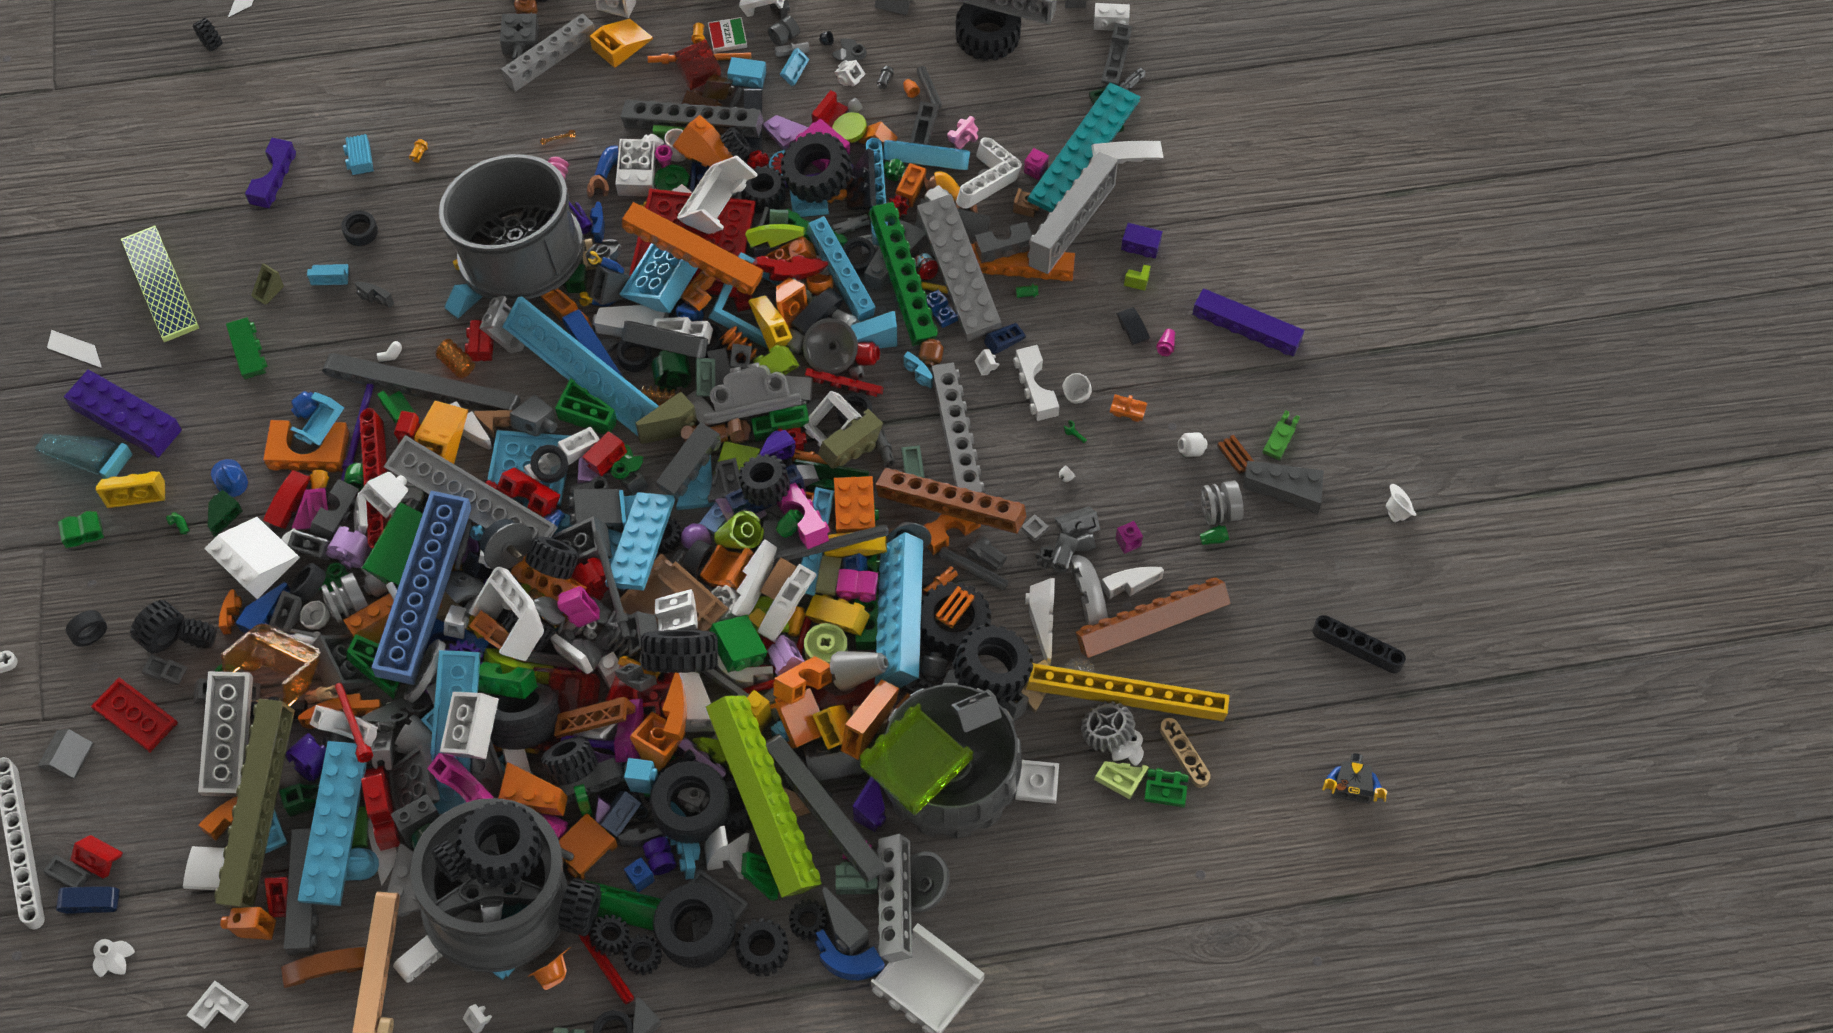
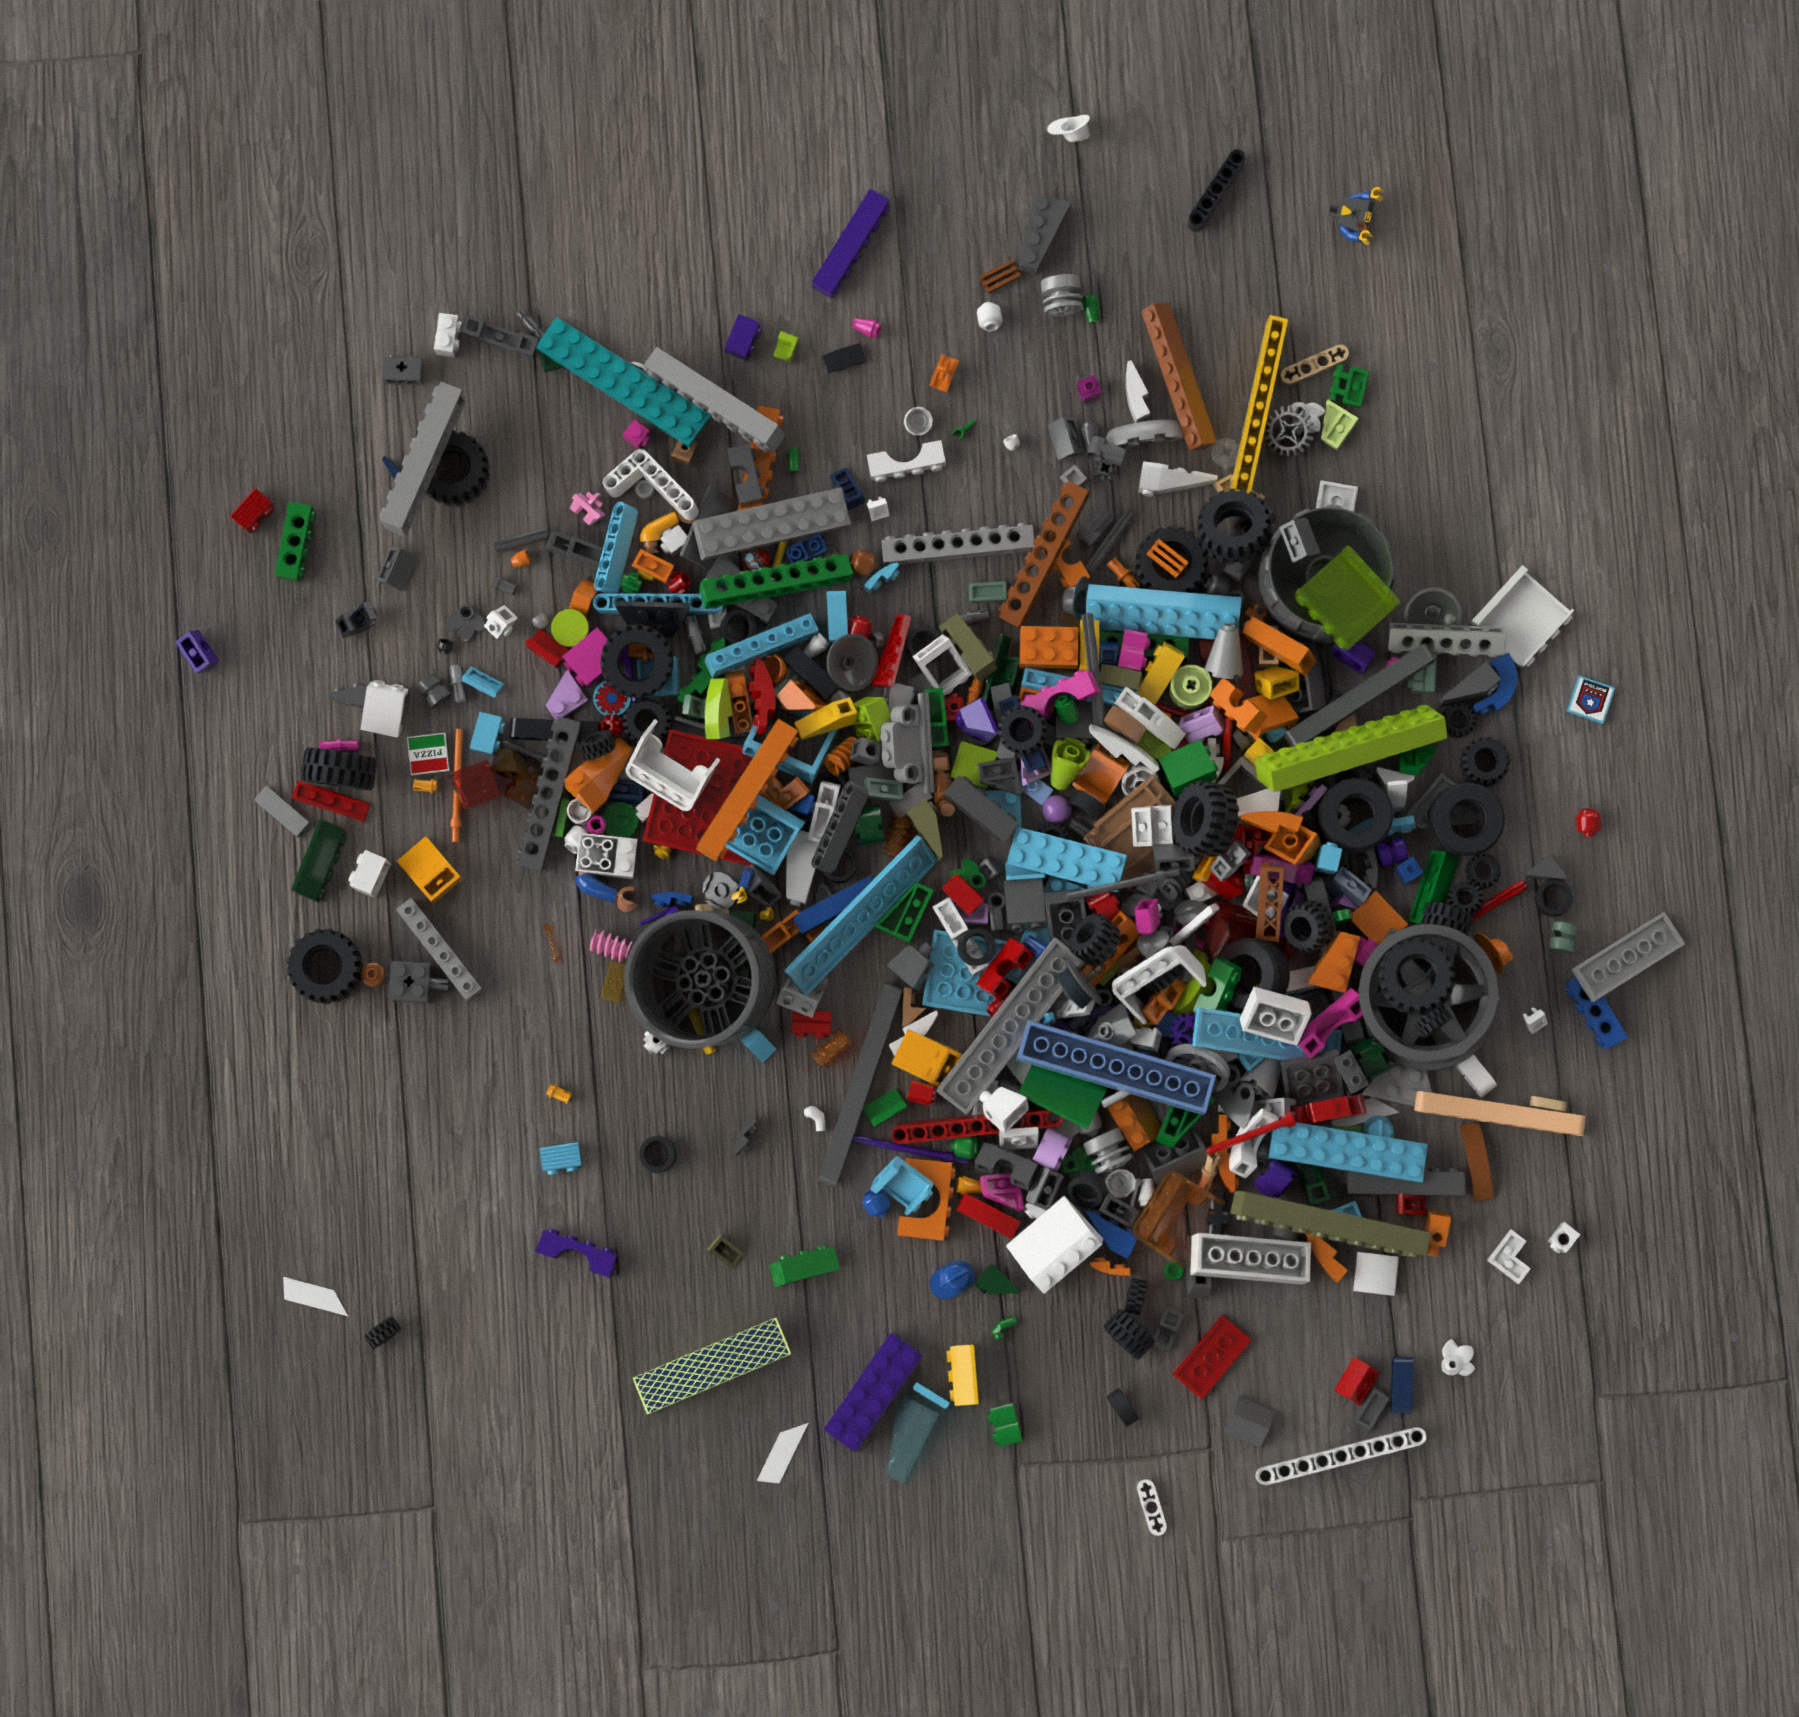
camera: 85 degrees left, 20 degrees up
(328, 274) = (711, 1185): medium azure panel -> none
(757, 617) = (1157, 748): yellow sticker -> none
(1130, 150) = (632, 337): white slope -> none
(1280, 437) = (983, 230): bright green hinge -> none

